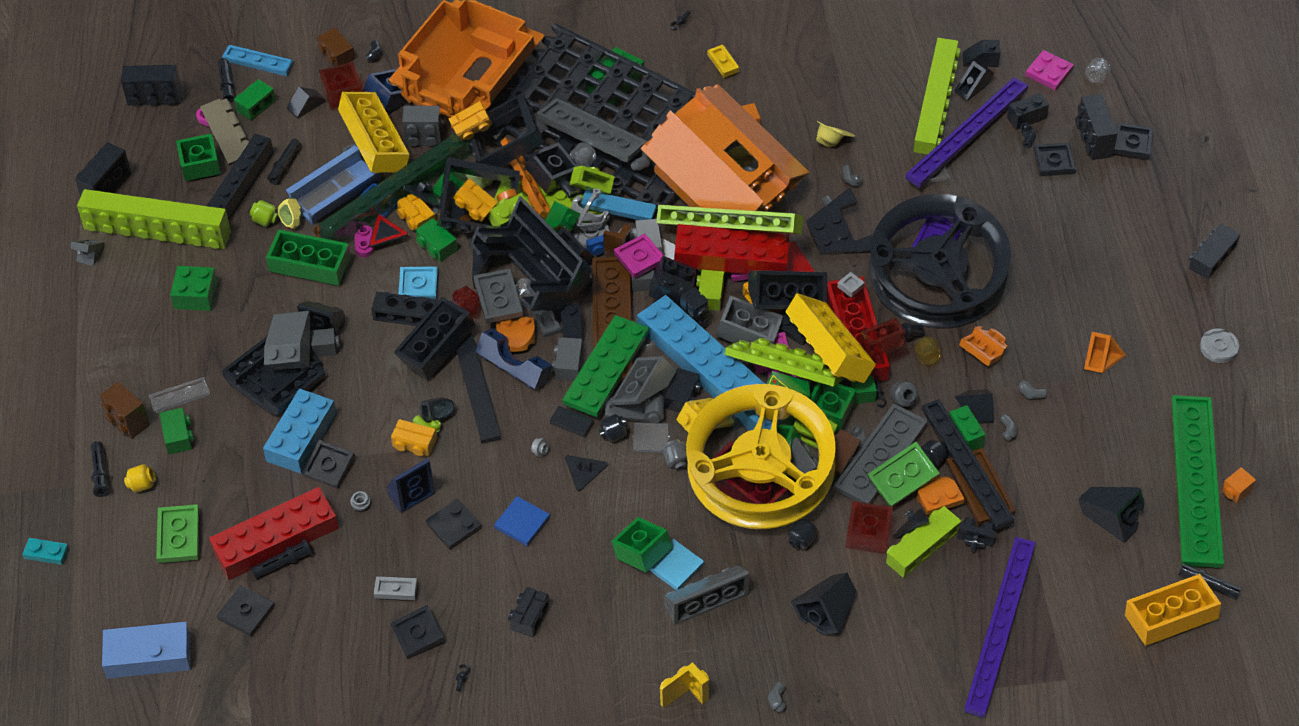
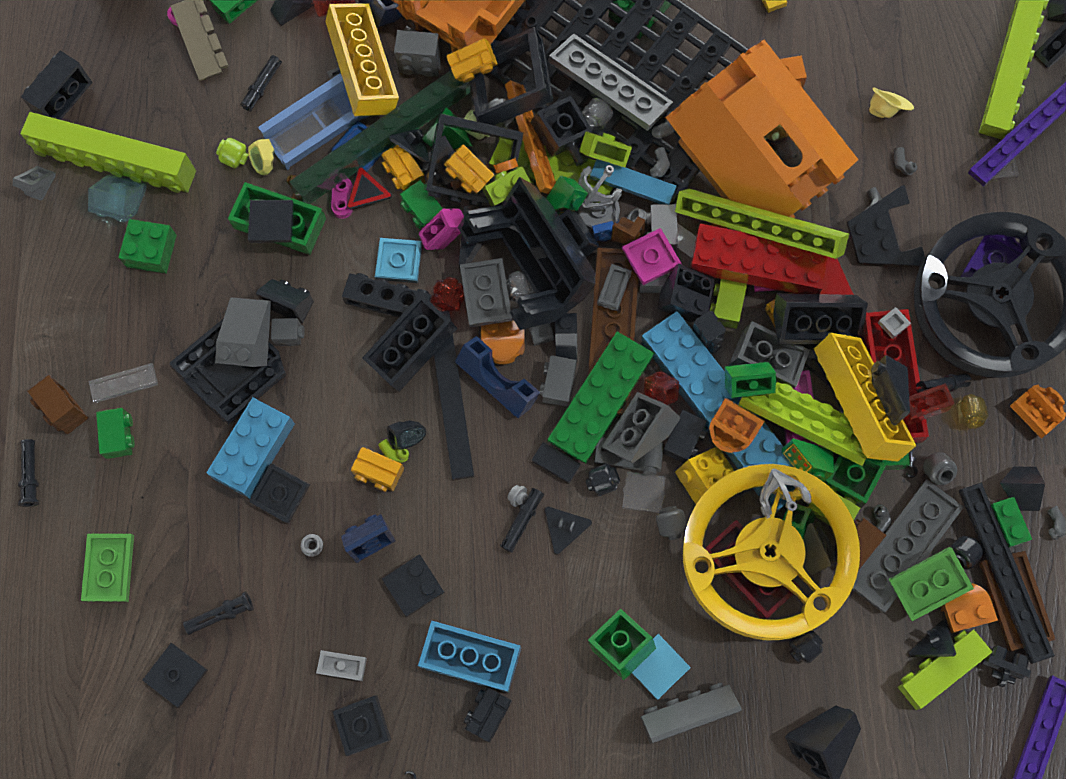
camera: 10 degrees right, 20 degrees up
(140, 478) = (71, 492): yellow head -> none
(146, 650) = (61, 719): medium blue brick -> none
(161, 255) = (116, 197): none -> clear light blue slope
(198, 157) = (164, 72): green brick -> none
(242, 174) = (209, 104): black brick -> none
(272, 531) = (211, 581): red brick -> none
(304, 255) = (271, 221): none -> black tile
(455, 252) = (441, 229): none -> dark pink brick
(508, 566) = (469, 656): none -> dark azure brick
(522, 521) = (489, 590): blue tile -> none
(549, 458) = (519, 525): none -> black pin
(610, 284) = (614, 287): none -> dark grey tile
(642, 190) = (661, 165): none -> dark grey arm
(657, 349) = (661, 388): none -> clear red brick
(722, 370) = (734, 427): none -> orange slope
(732, 333) = (750, 379): none -> green brick
(760, 390) = (779, 479): none -> light grey helmet
(850, 324) = (892, 388): none -> black slope
(869, 527) = (884, 647): clear red brick -> none

